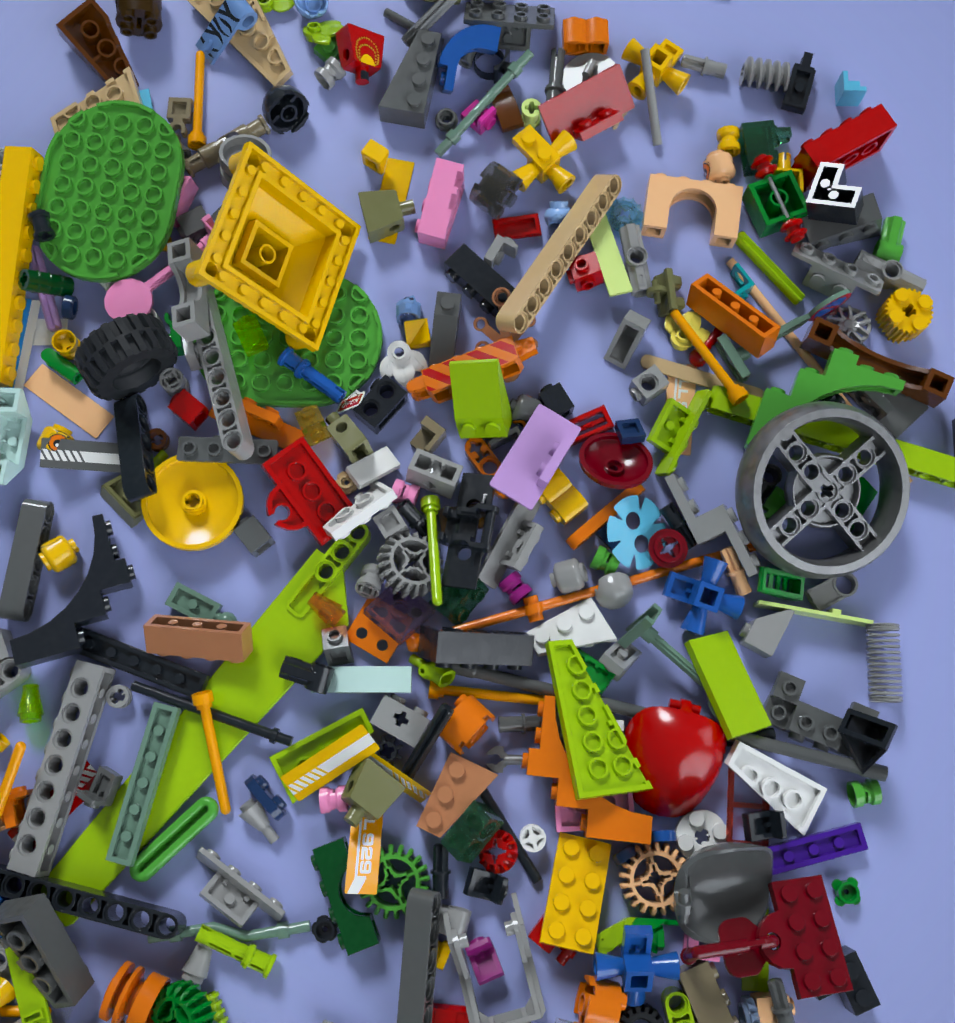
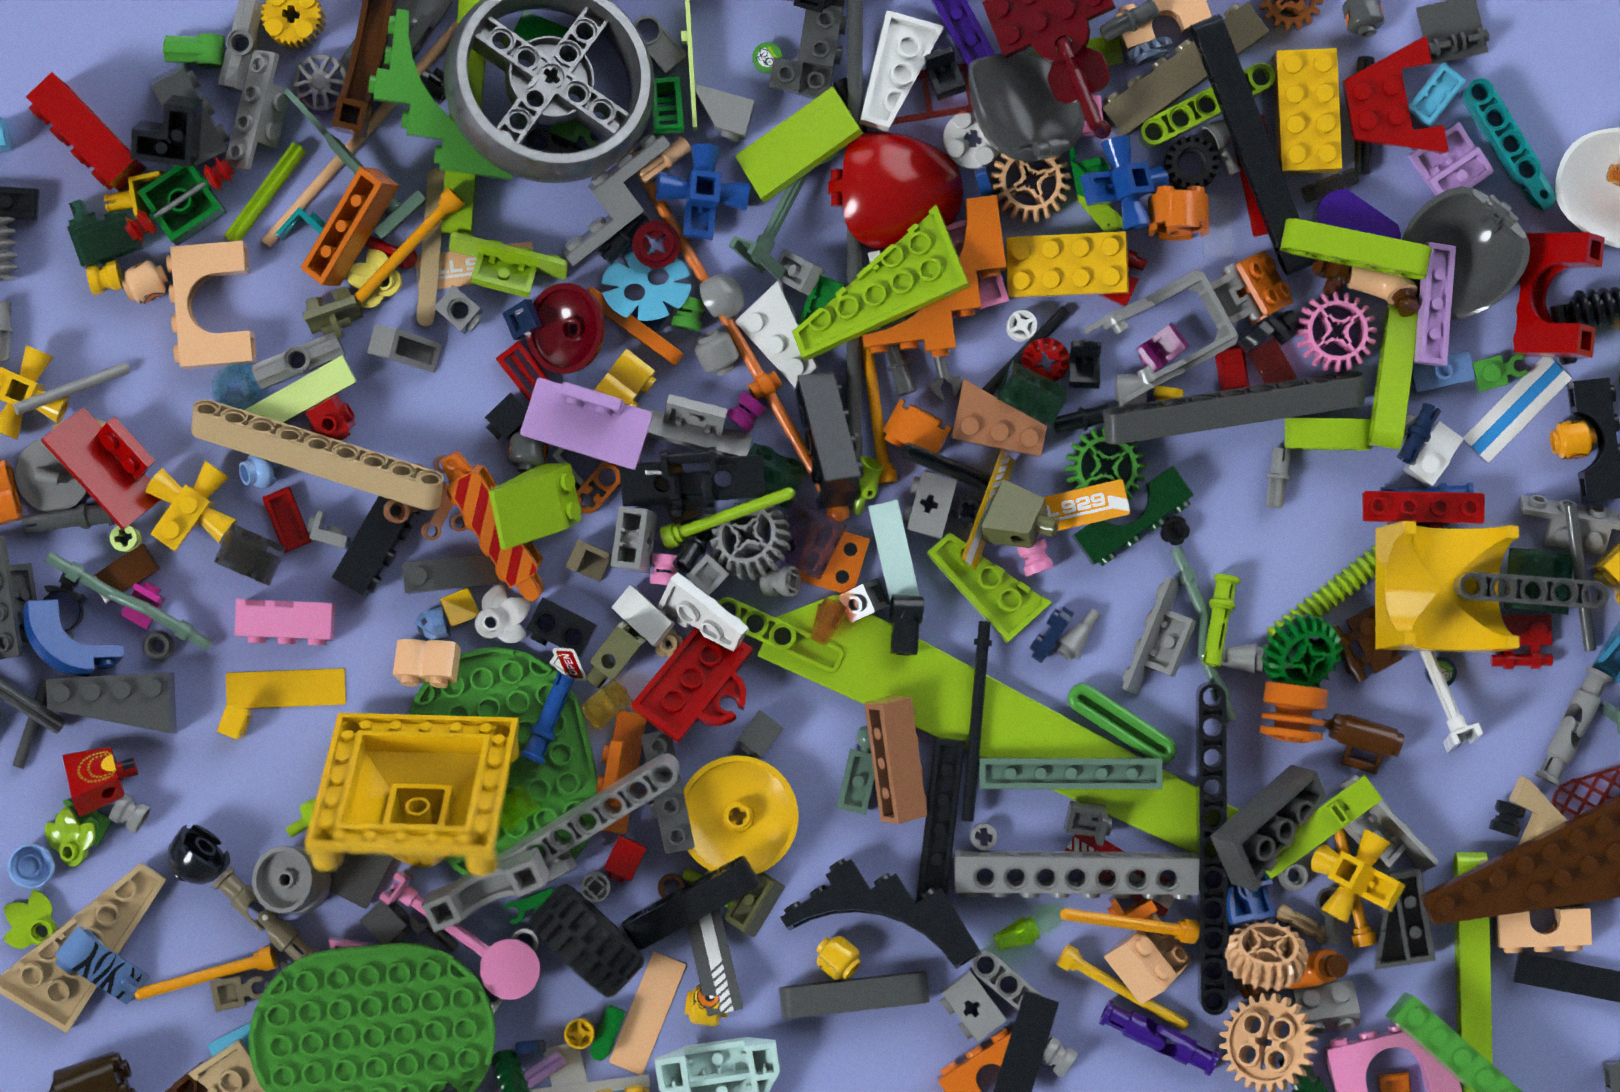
camera: 105 degrees left, 10 degrees up
(203, 702) = (964, 731): light orange piece -> none
(330, 762) = (997, 569): yellow sticker -> none
(381, 297) = (426, 662): none -> light nougat brick
(384, 213) = (310, 689): olive torso -> none
(624, 854) = (1014, 220): dark blue tile -> none
(806, 673) = (764, 55): none -> tile

